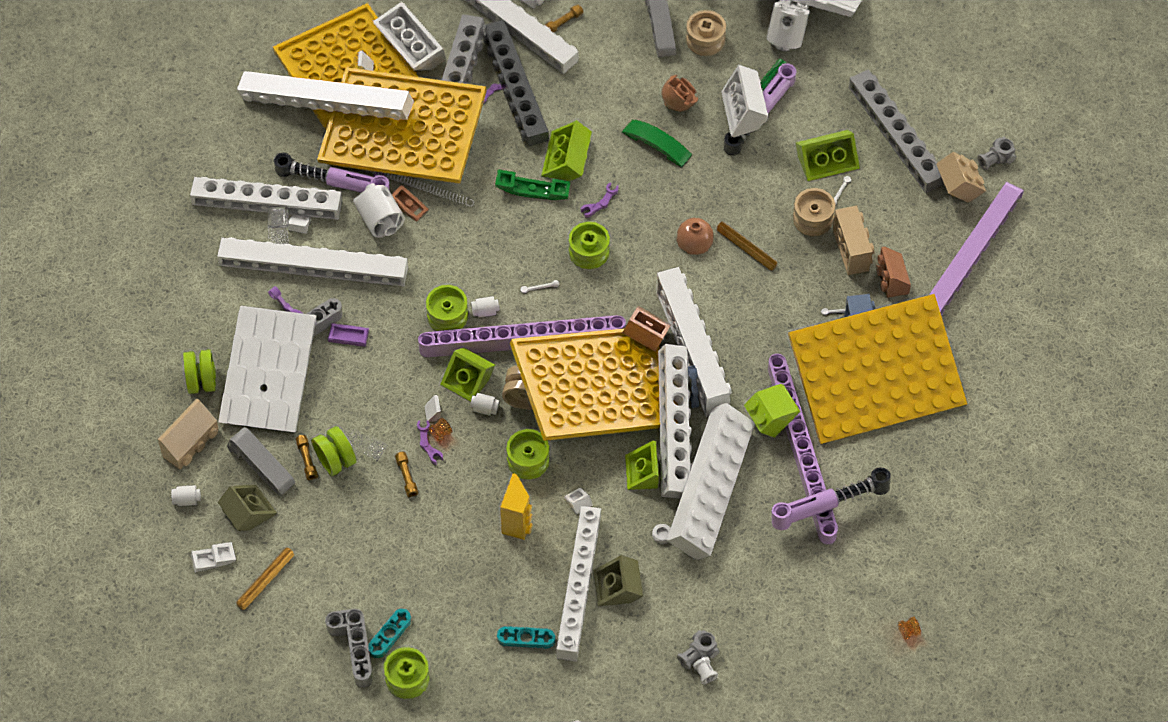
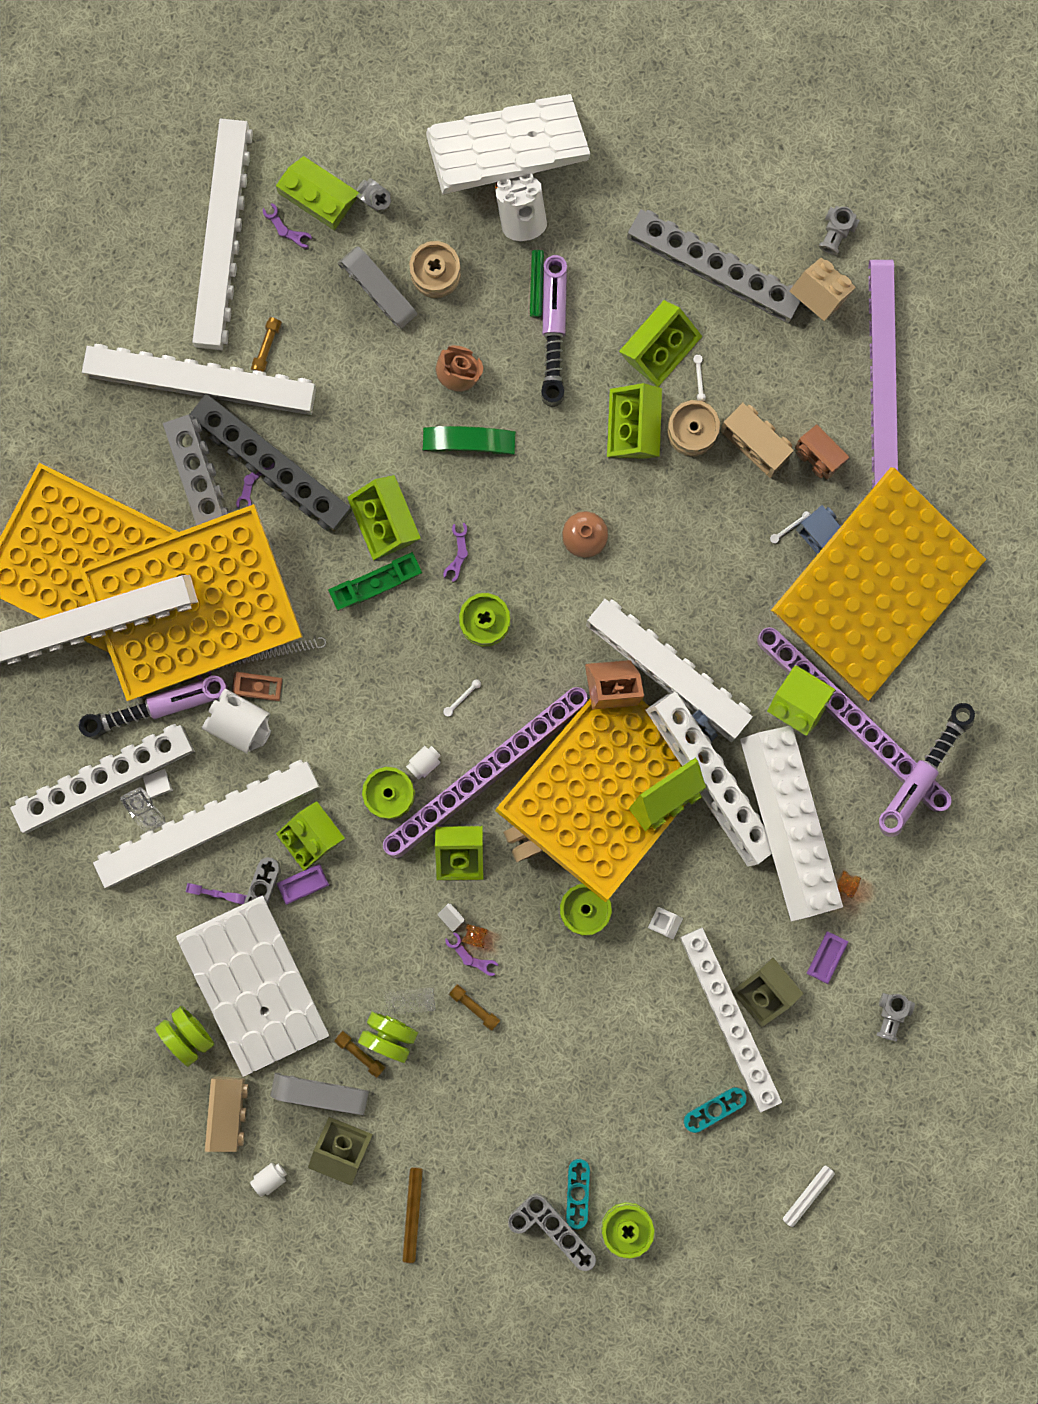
camera: 30 degrees left, 25 degrees up
(215, 557) = (344, 1226): white slope -> none
(365, 62) = (95, 548): white slope -> none
(376, 306) = (310, 835): none -> lime slope
(410, 38) = (119, 483): white slope -> none
(484, 404) = (500, 876): white brick -> none
(516, 510) = (622, 988): yellow slope -> none
(636, 403) = (669, 796): none -> lime slope
(642, 467) = (708, 847): lime slope -> none
(660, 533) = (773, 906): white tile -> none
(677, 588) = (827, 957): none -> medium lavender tile
(705, 670) = (913, 1032): white bush -> none
(724, 547) = (848, 884): none -> clear orange wheel
(744, 102) = (537, 339): white slope -> none
(747, 246) = (645, 510): pearl gold axle -> none
(777, 189) = (634, 421): none -> lime slope

